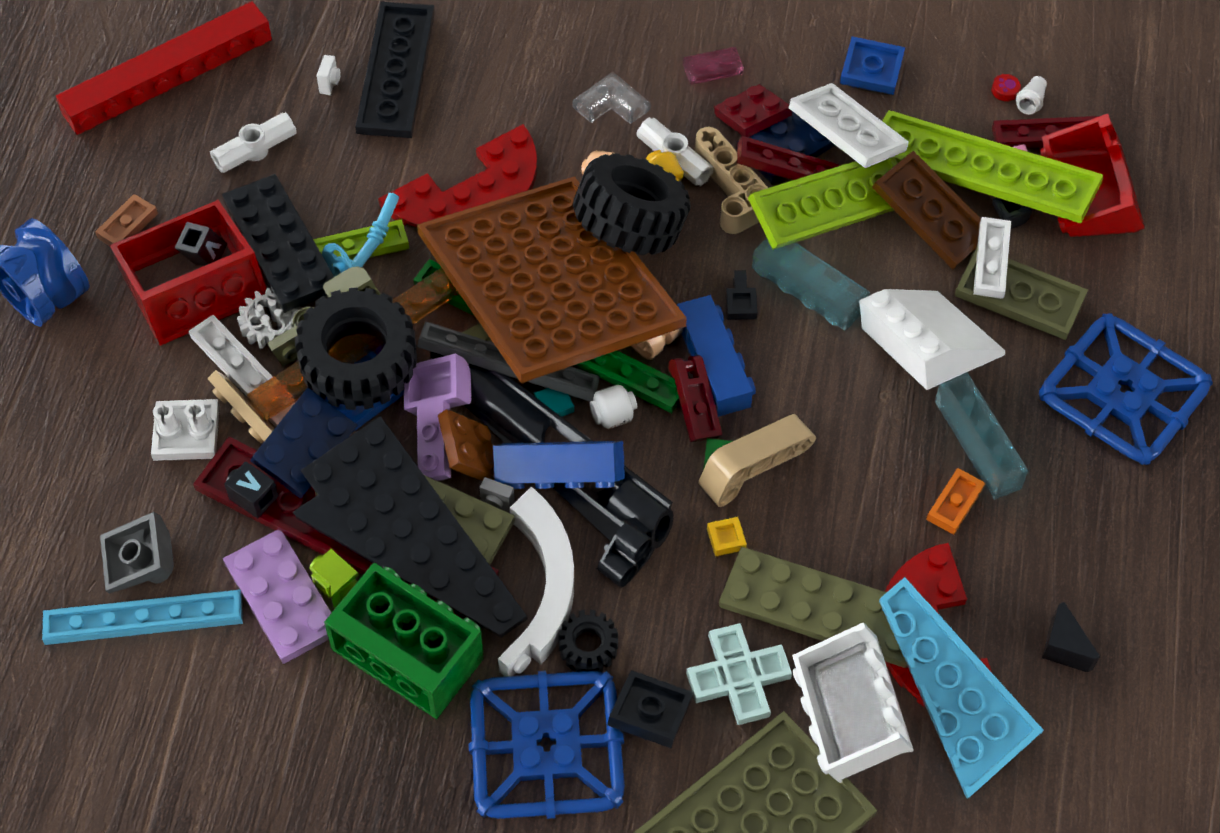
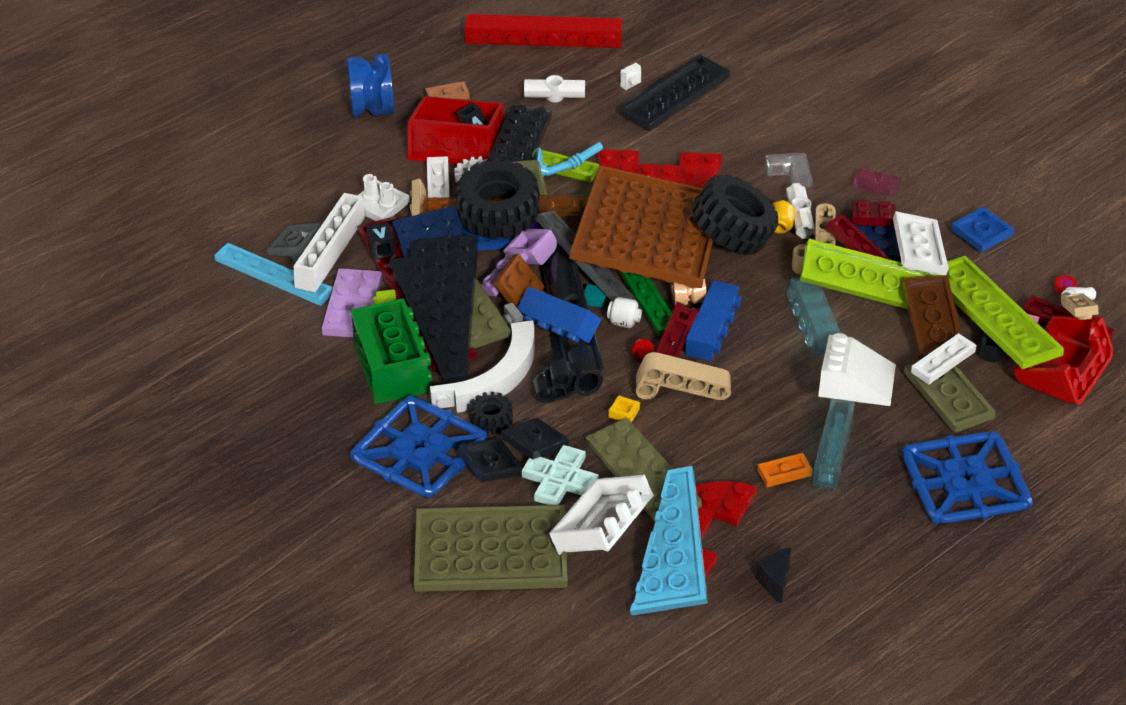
camera: 40 degrees right, 15 degrees down
(188, 533) = (329, 242): none -> white brick
(670, 644) = (534, 438): none -> black plate
(674, 442) = (641, 348): none -> red plate
(740, 300) = (761, 304): black plate -> none
(1067, 110) = (1080, 306): none -> tan plate

